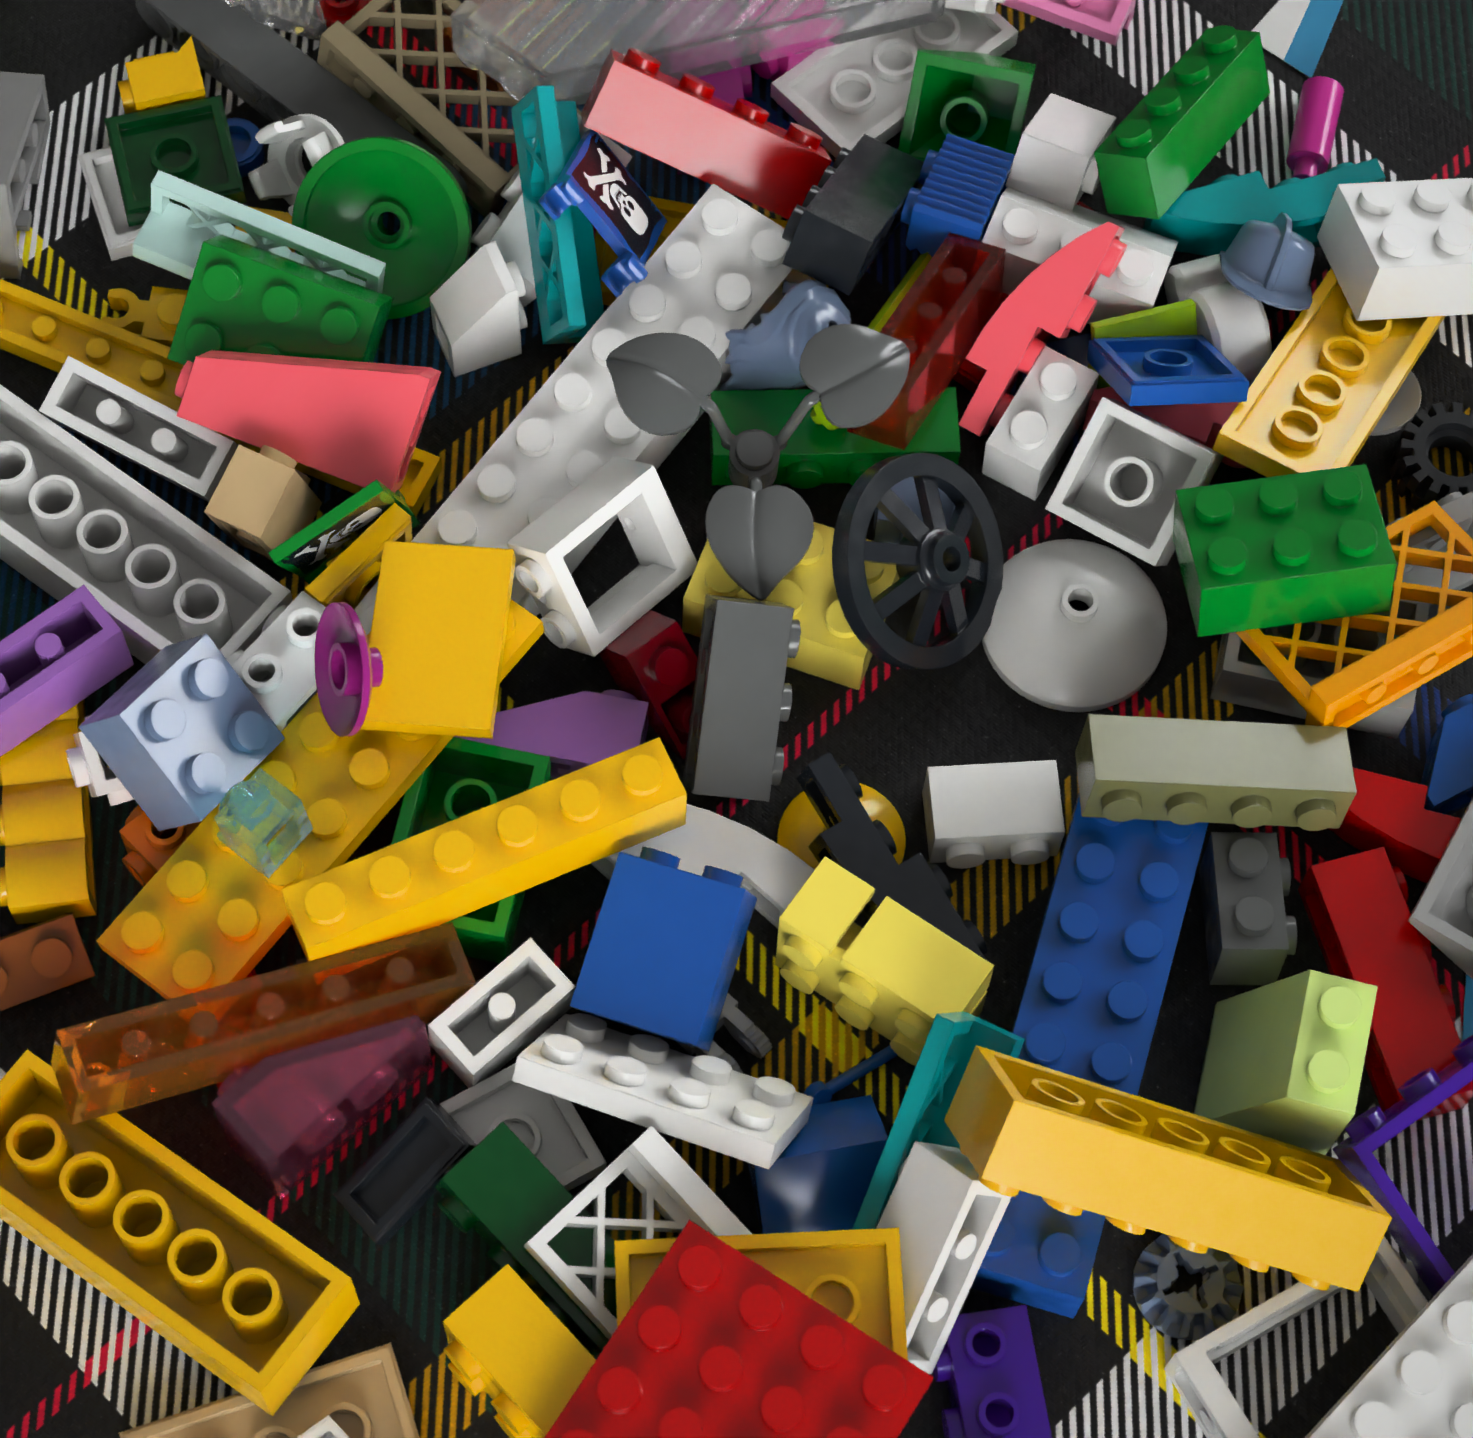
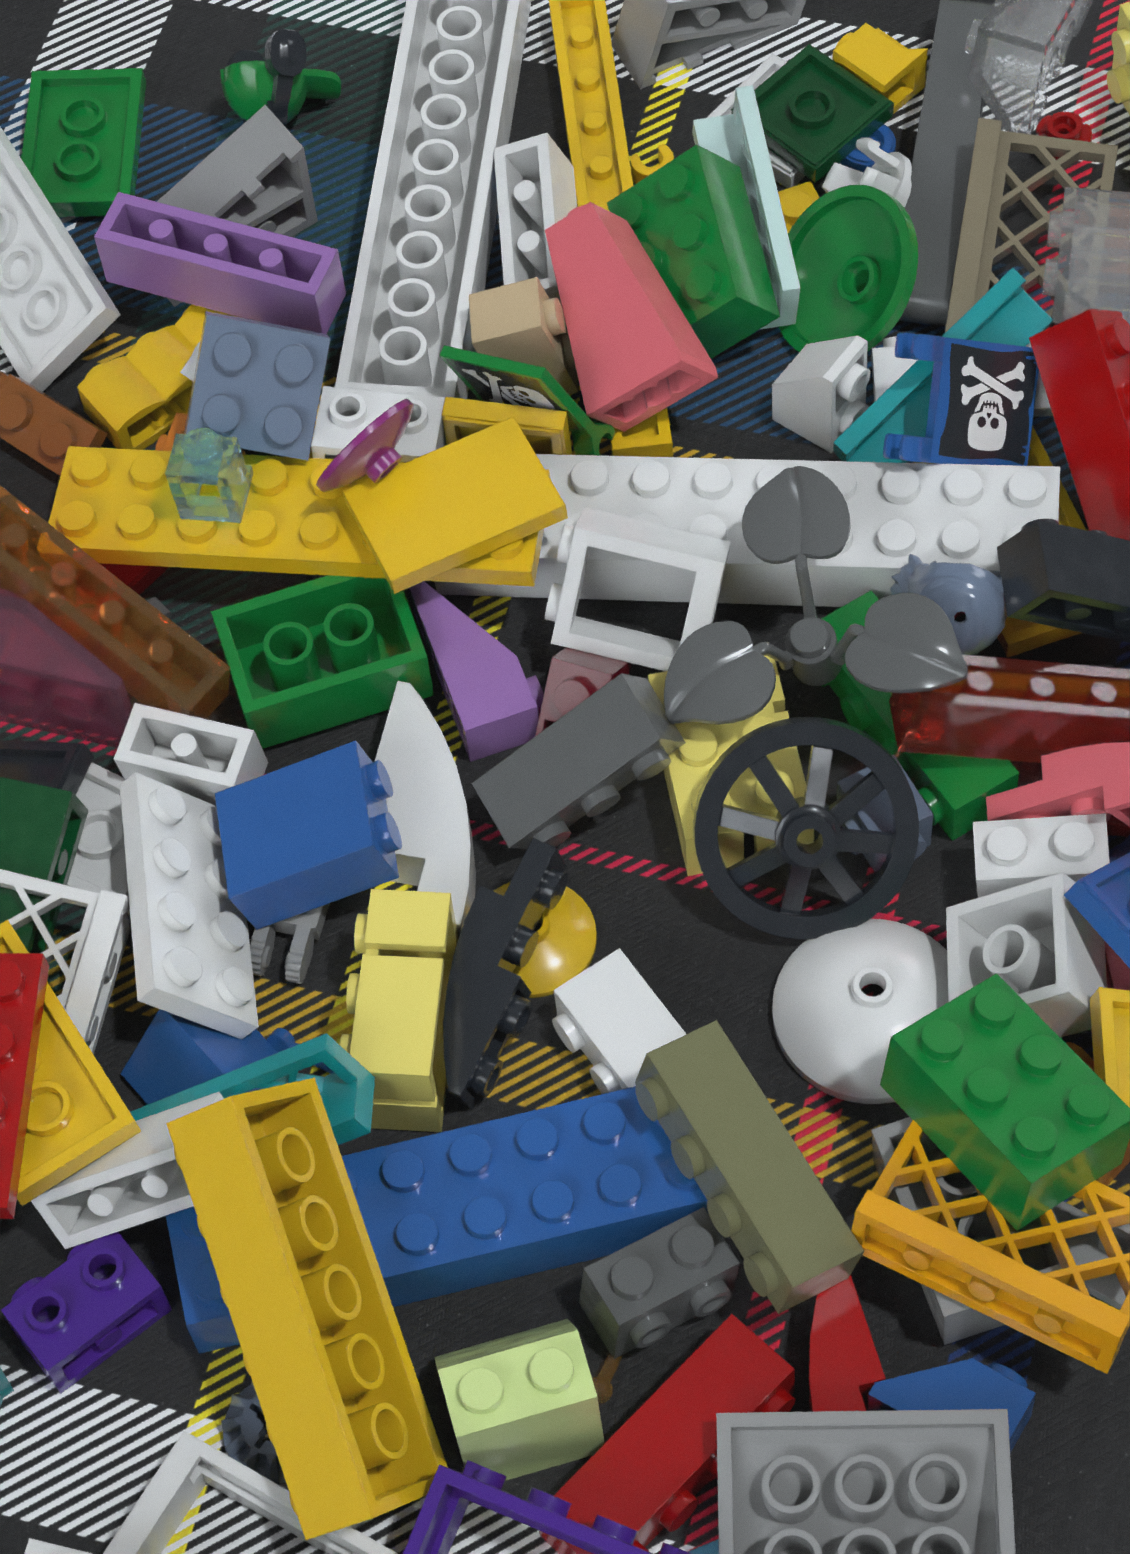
camera: 70 degrees right, 5 degrees down
(489, 853) = (297, 653): yellow brick -> none

